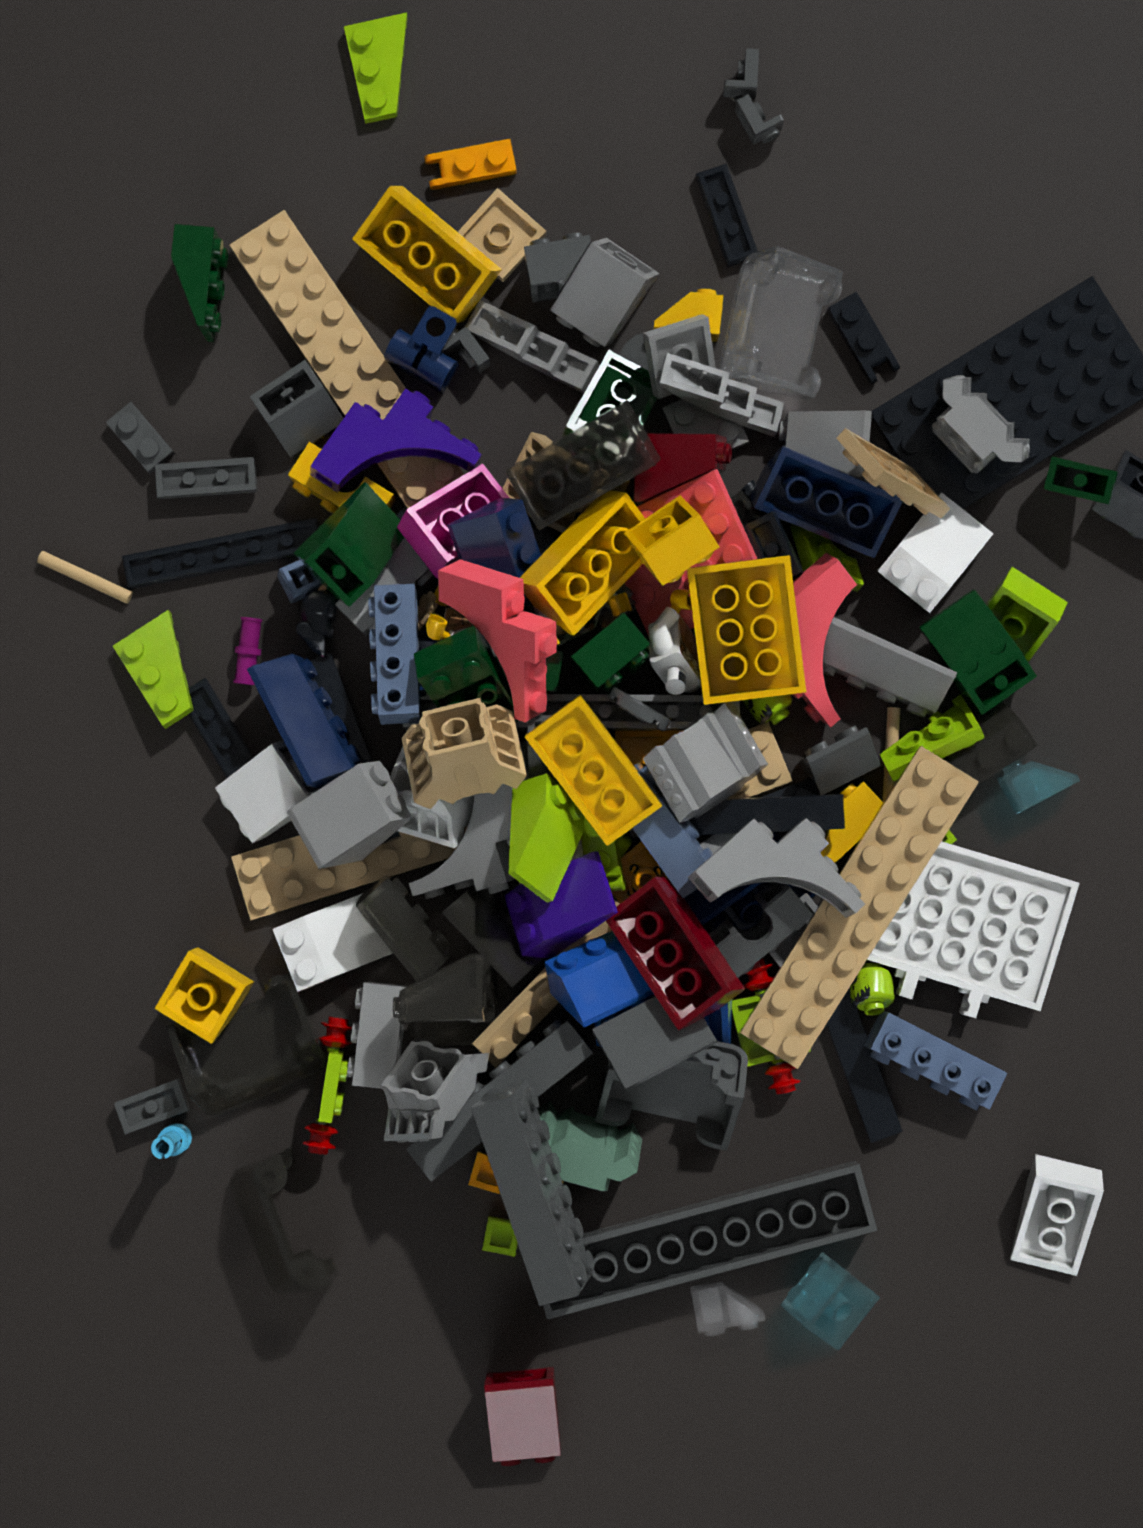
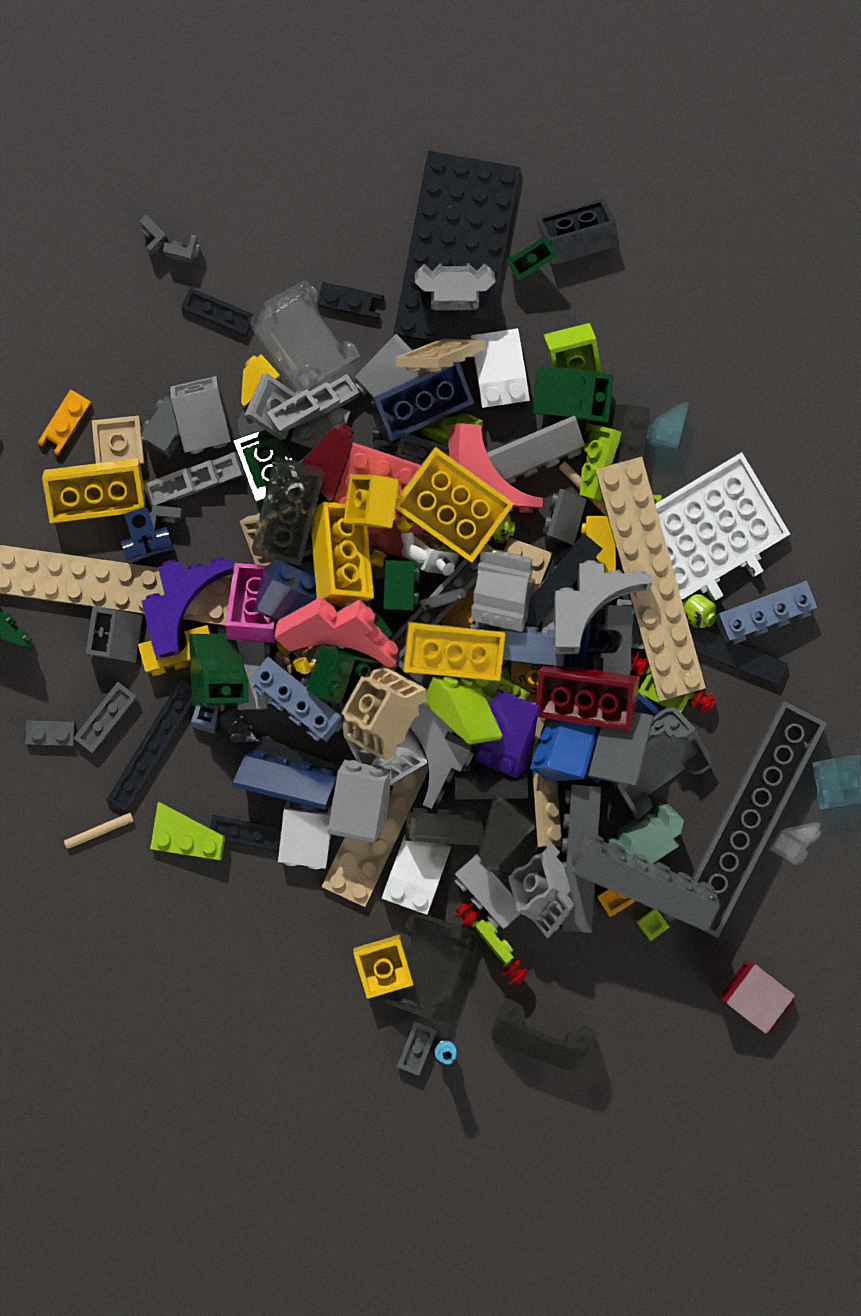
camera: 50 degrees left, 0 degrees up
(247, 649) = (219, 778): magenta pin -> none

